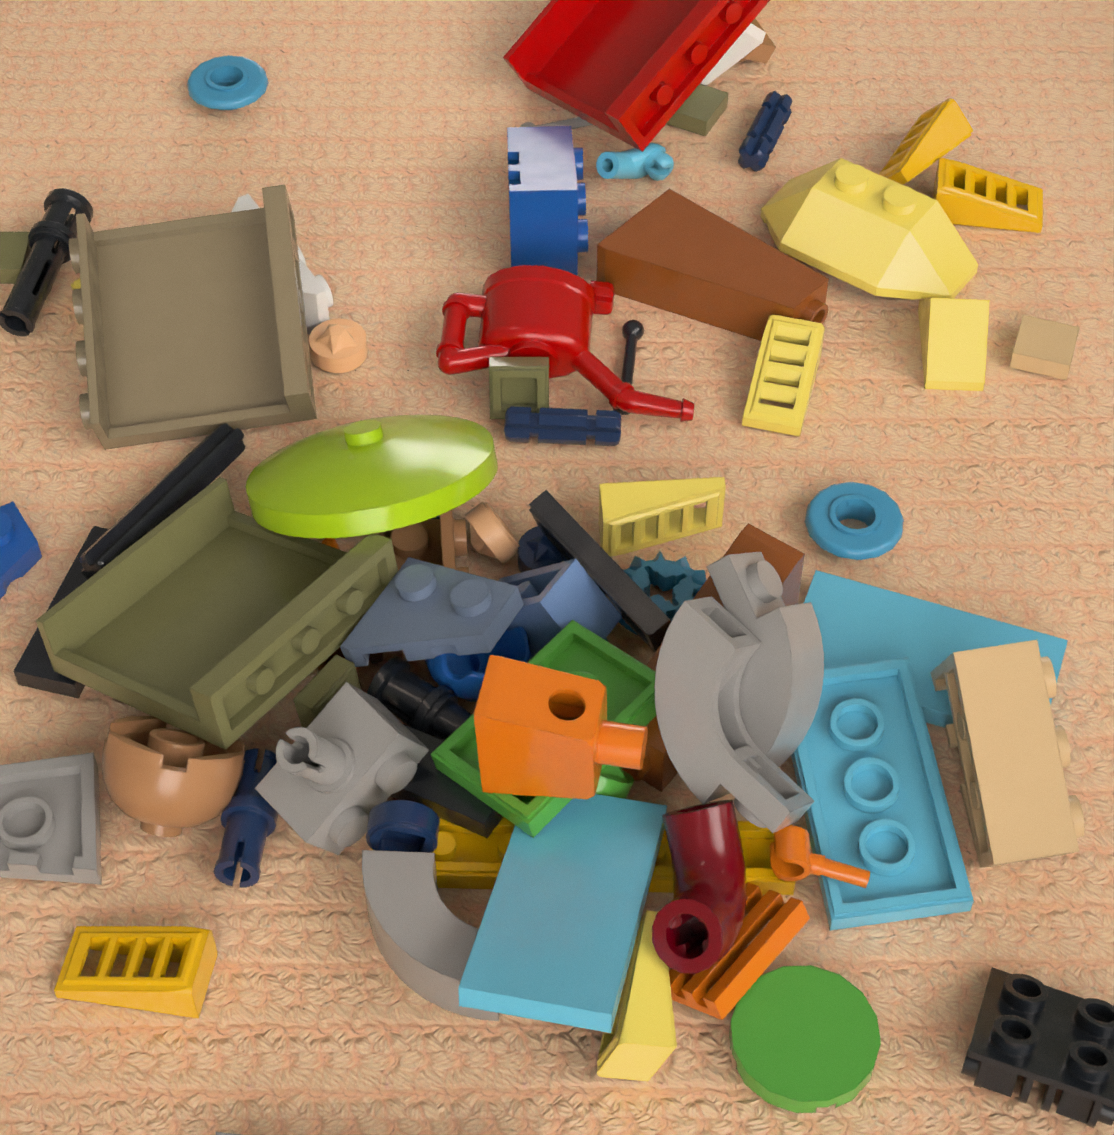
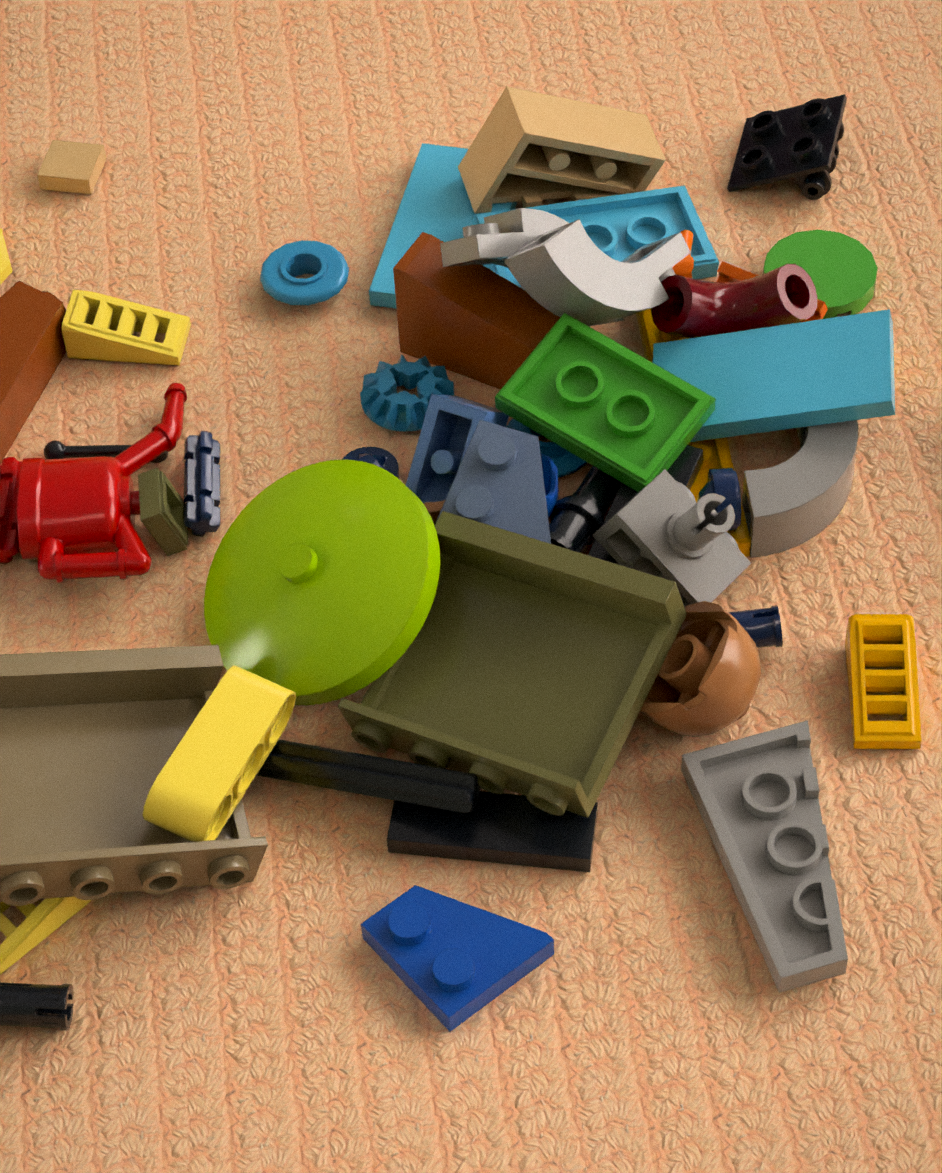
camera: 95 degrees left, 0 degrees up
(185, 389) = (219, 756): none -> light yellow beam
(548, 732) = (663, 332): orange torso -> none
(624, 594) = (408, 405): black tile -> none
(657, 511) = (324, 404): light yellow slope -> none
(954, 343) = (64, 218): light yellow slope -> none

